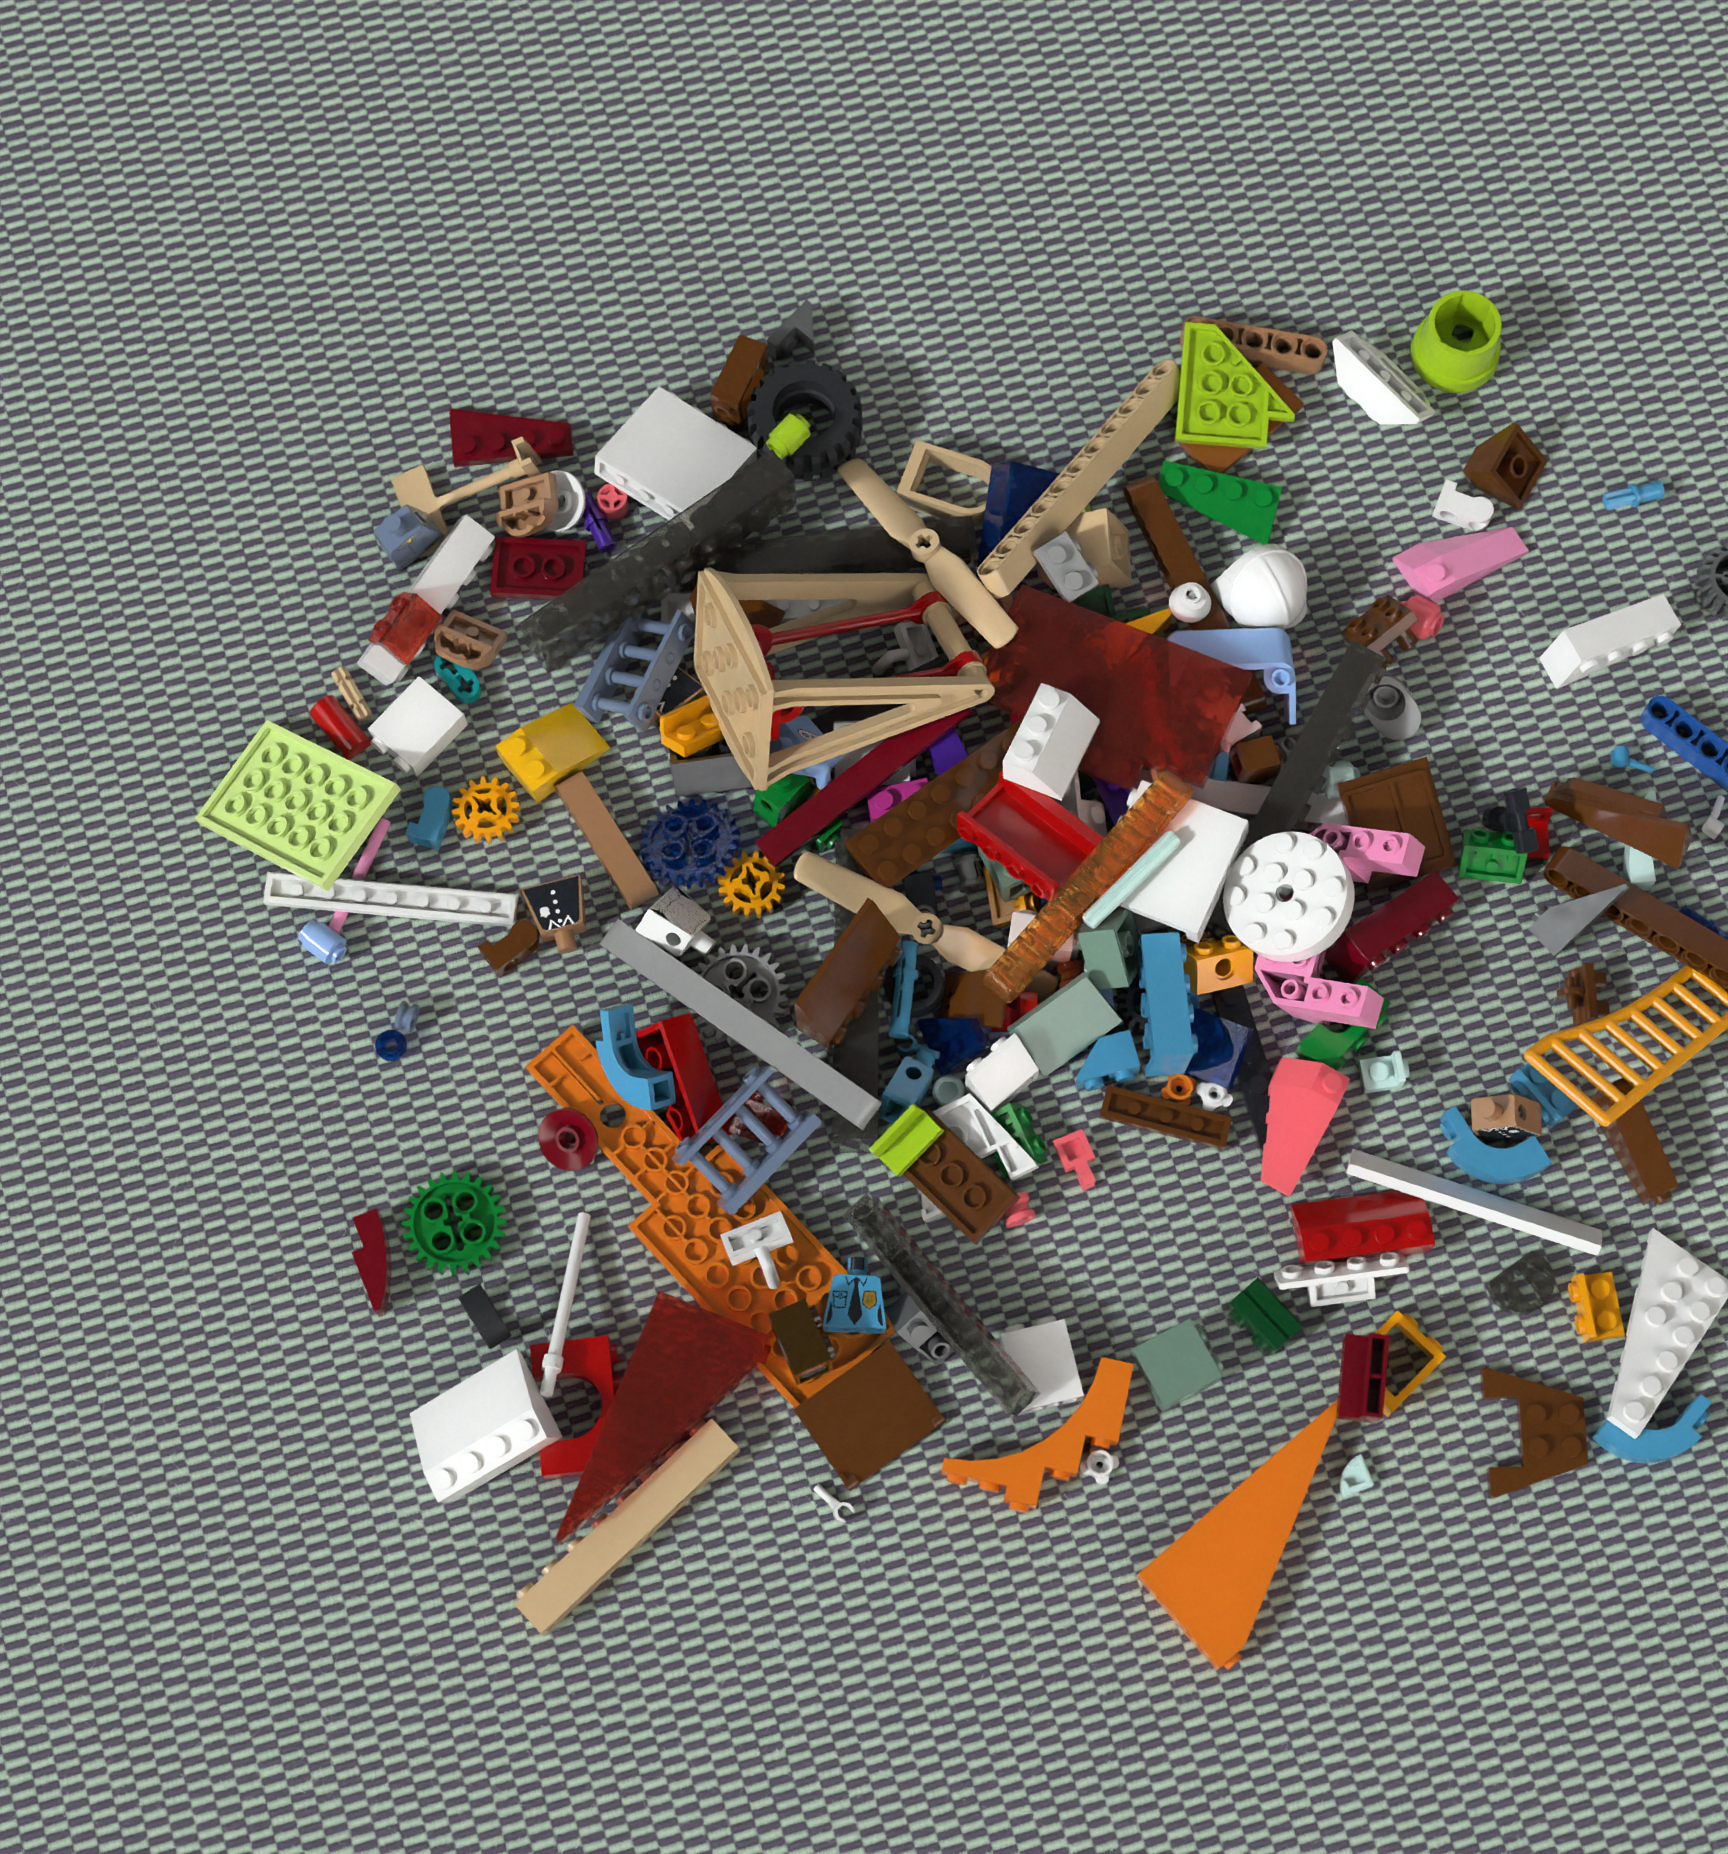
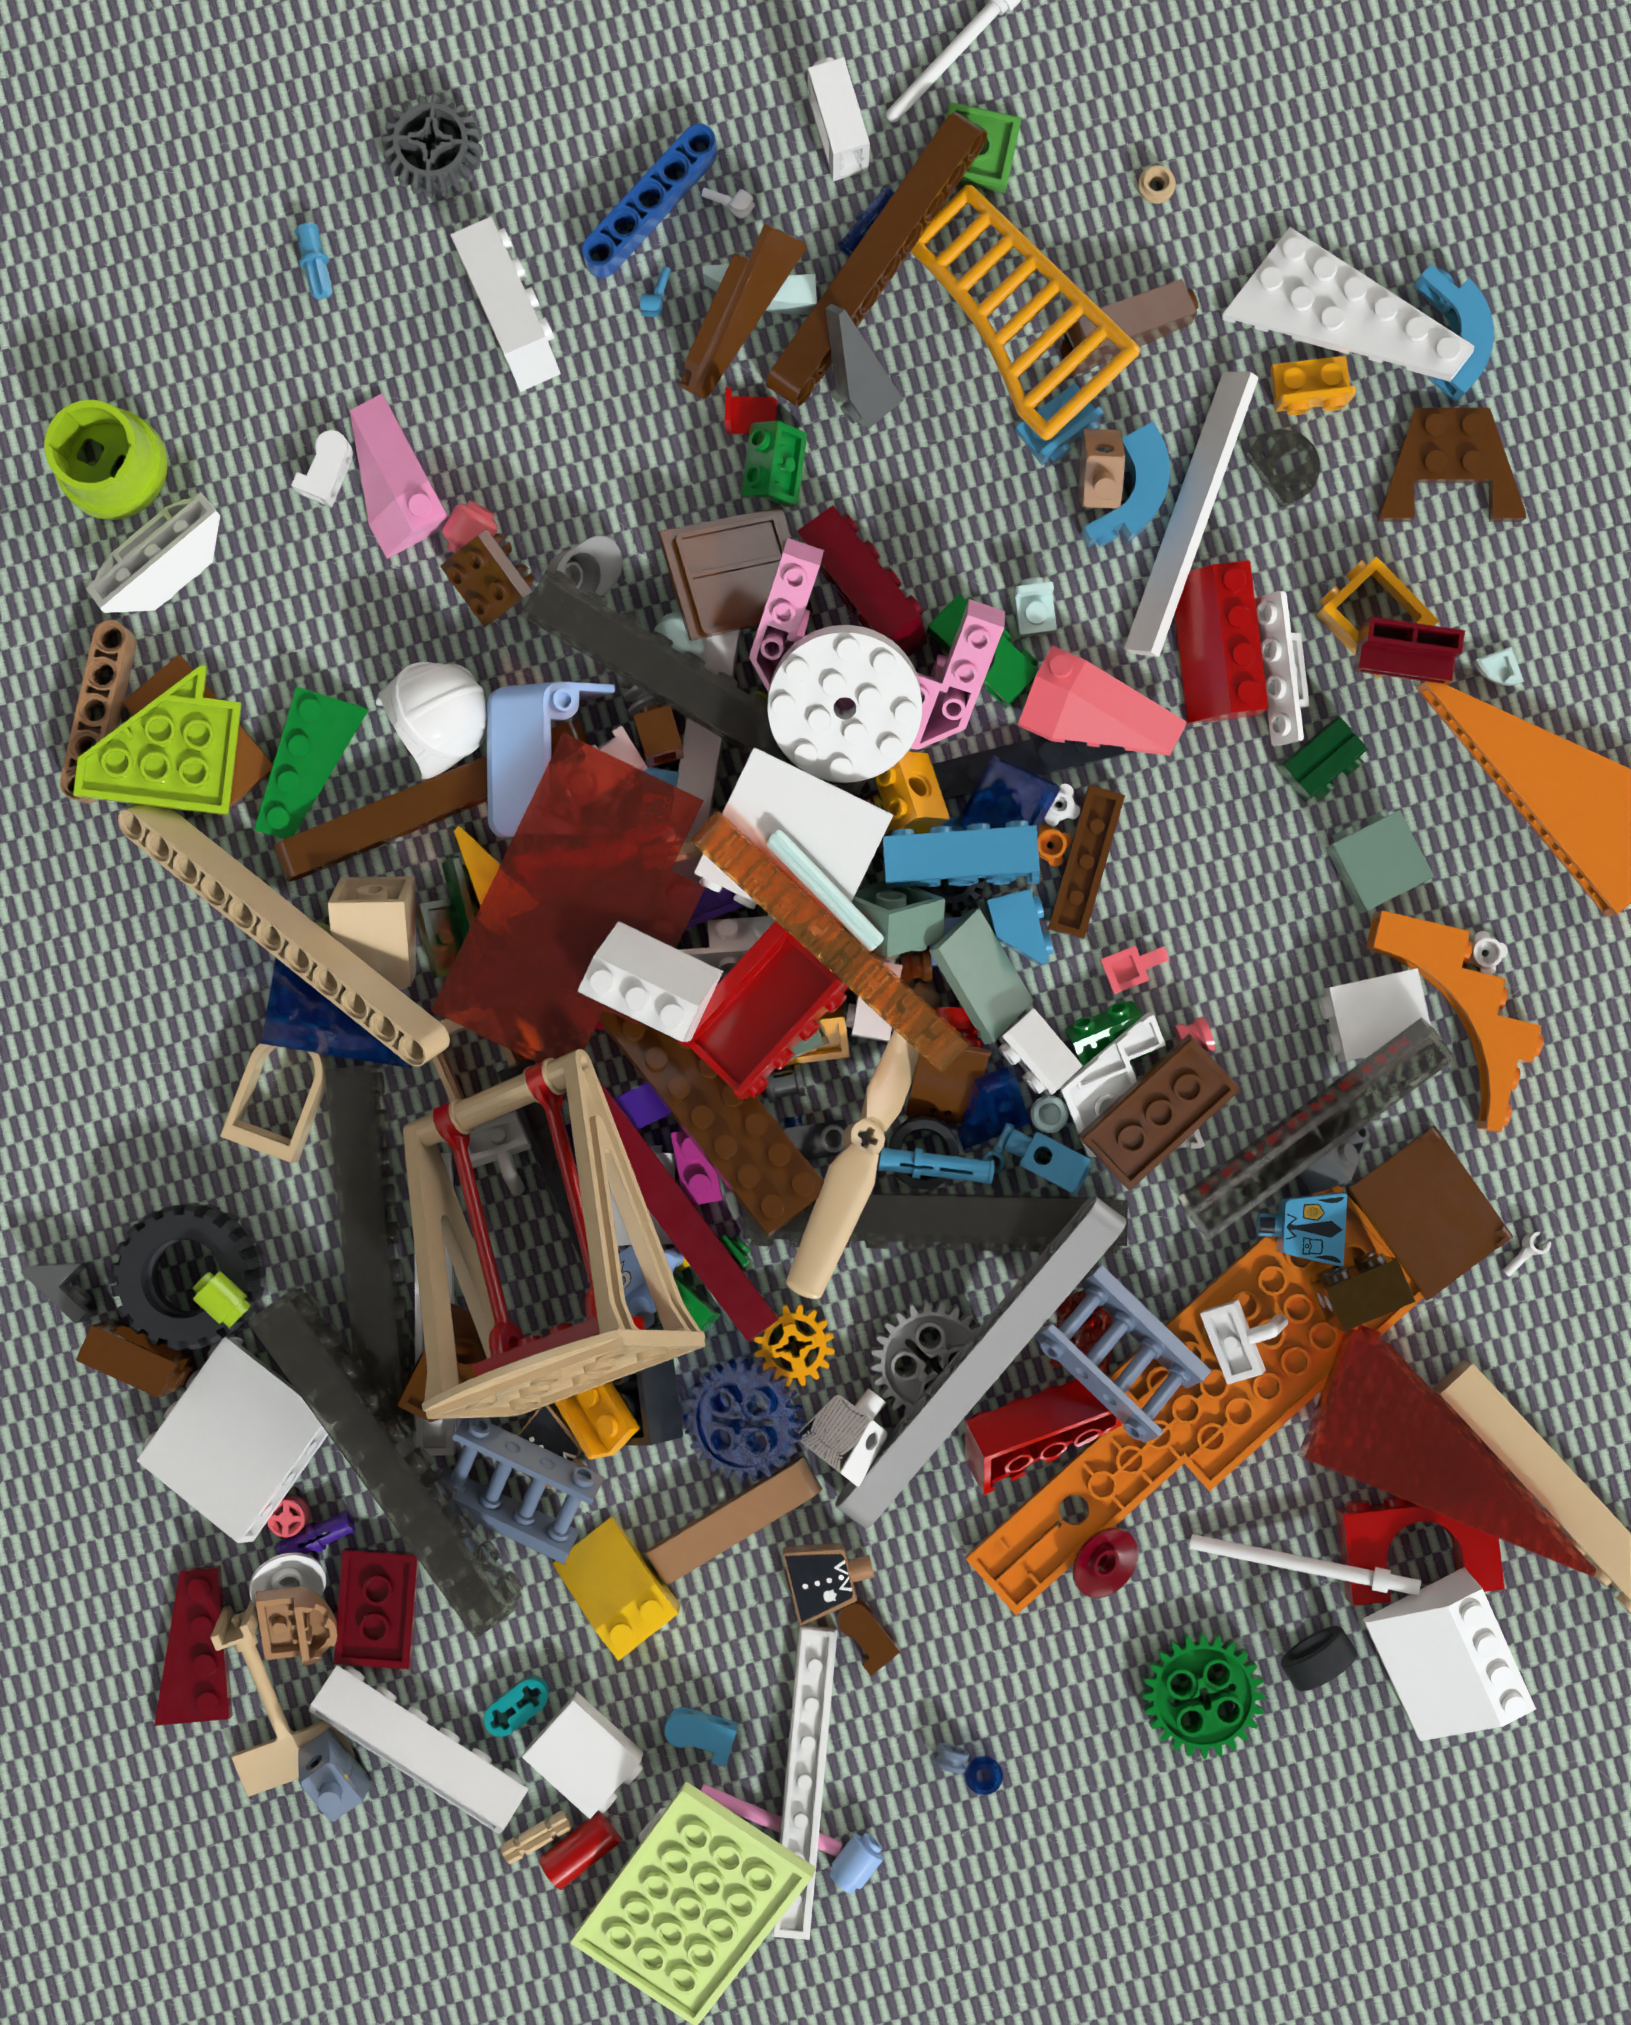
camera: 90 degrees left, 15 degrees up
(374, 1259) = (1246, 1787): dark red slope -> none
(405, 626) = (462, 1779): clear red bracket -> none
(468, 640) = (474, 1696): medium nougat slope -> none
(493, 799) = (705, 1679): light orange gear -> none
(625, 1065) = (1027, 1494): dark azure arch -> none
(848, 976) = (947, 1234): reddish brown slope -> none
(906, 1139) = (1120, 1163): lime panel -> none
(945, 569) = (404, 1105): tan piece -> none
(1067, 567) = (411, 954): light grey bracket -> none
(1190, 602) = (457, 813): white cone -> none
(1506, 466) = (272, 411): reddish brown slope -> none
(1513, 819) = (736, 432): black bar -> none
(1582, 995) = (946, 371): reddish brown hips -> none

